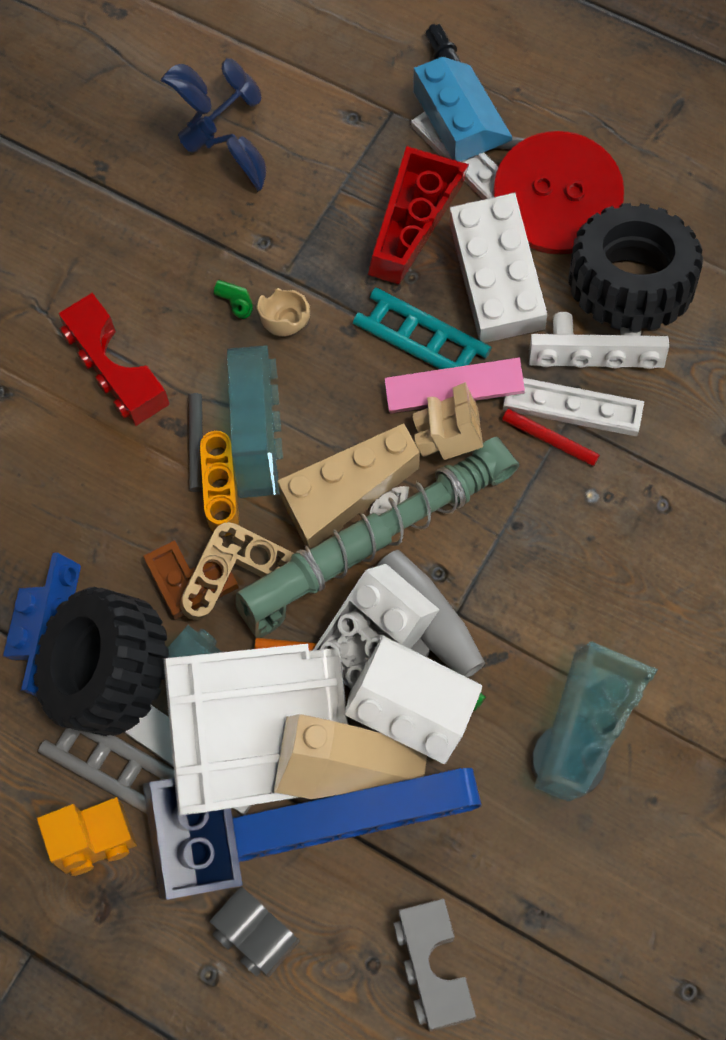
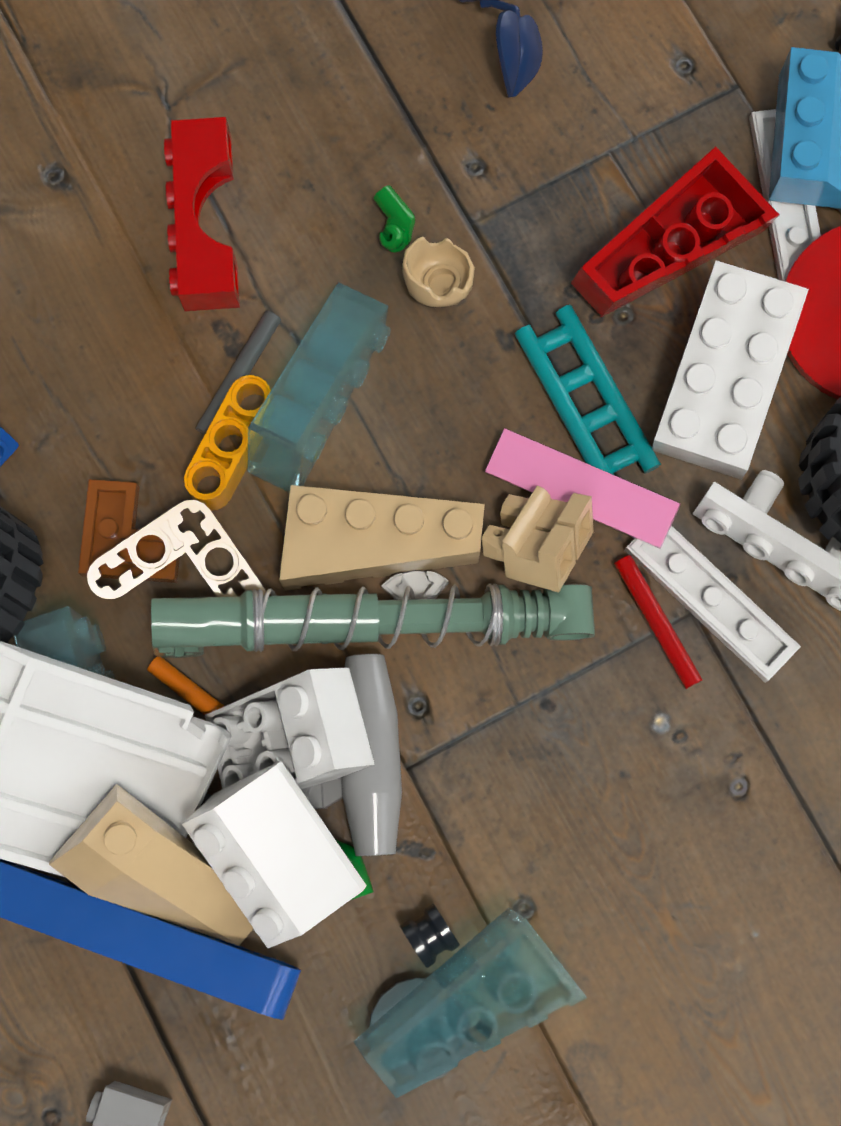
camera: 30 degrees right, 10 degrees up
(538, 698) = (429, 935): none -> black wheel

